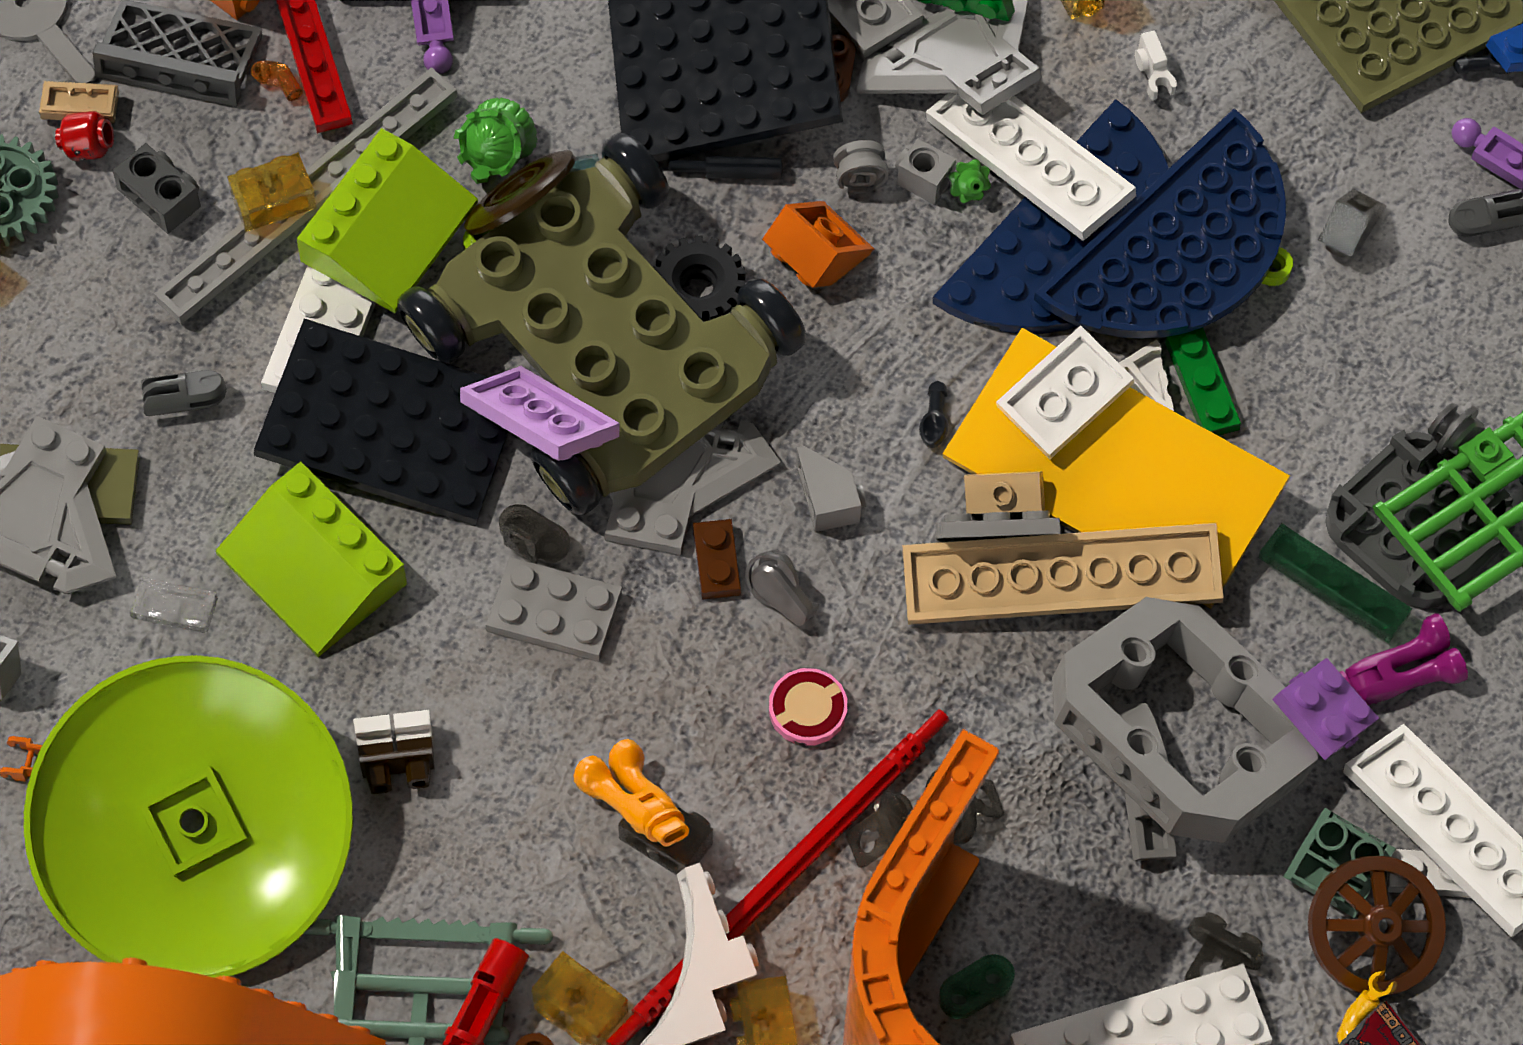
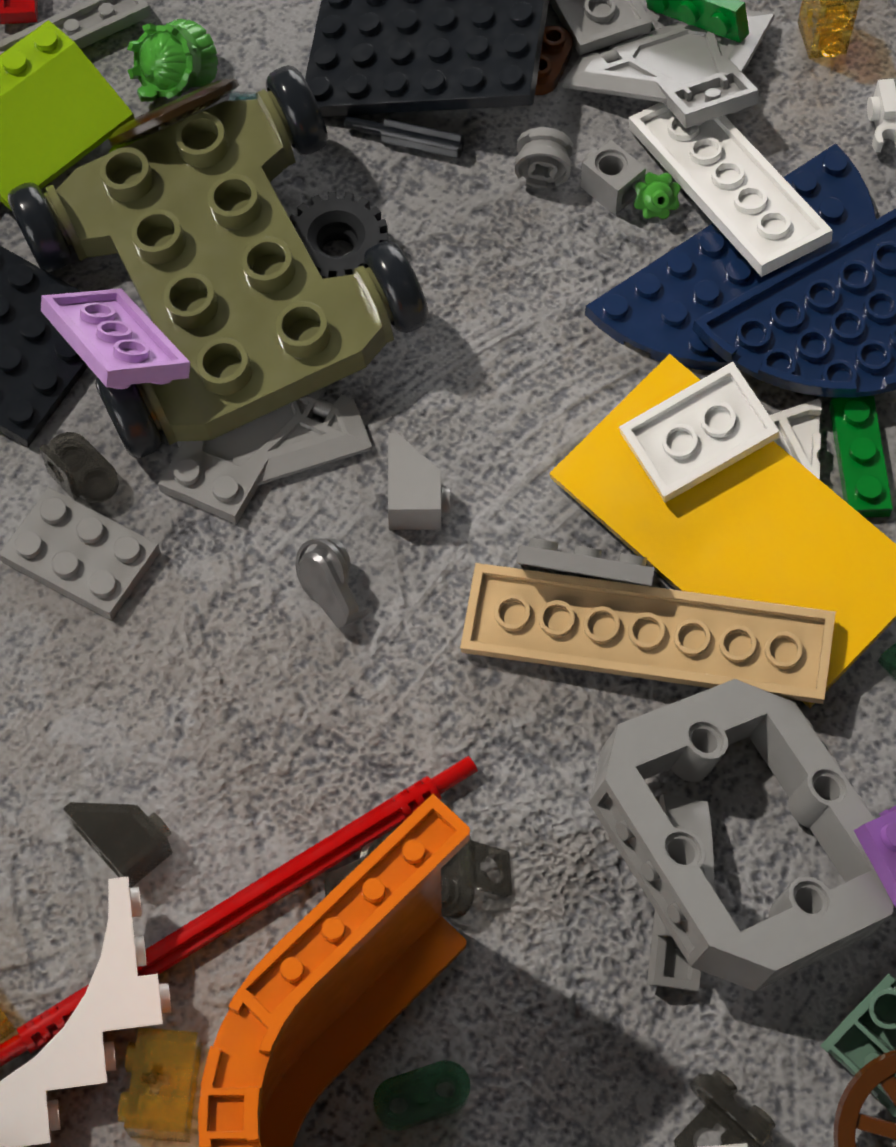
camera: 15 degrees right, 0 degrees up
(647, 808) = (96, 801): light orange piece -> none
(716, 559) = (271, 536): reddish brown plate -> none
(808, 706) = (323, 721): tile -> none
(816, 243) = (474, 226): orange slope -> none
(934, 424) = (550, 440): black piece -> none
(1004, 492) = (606, 528): tan plate -> none

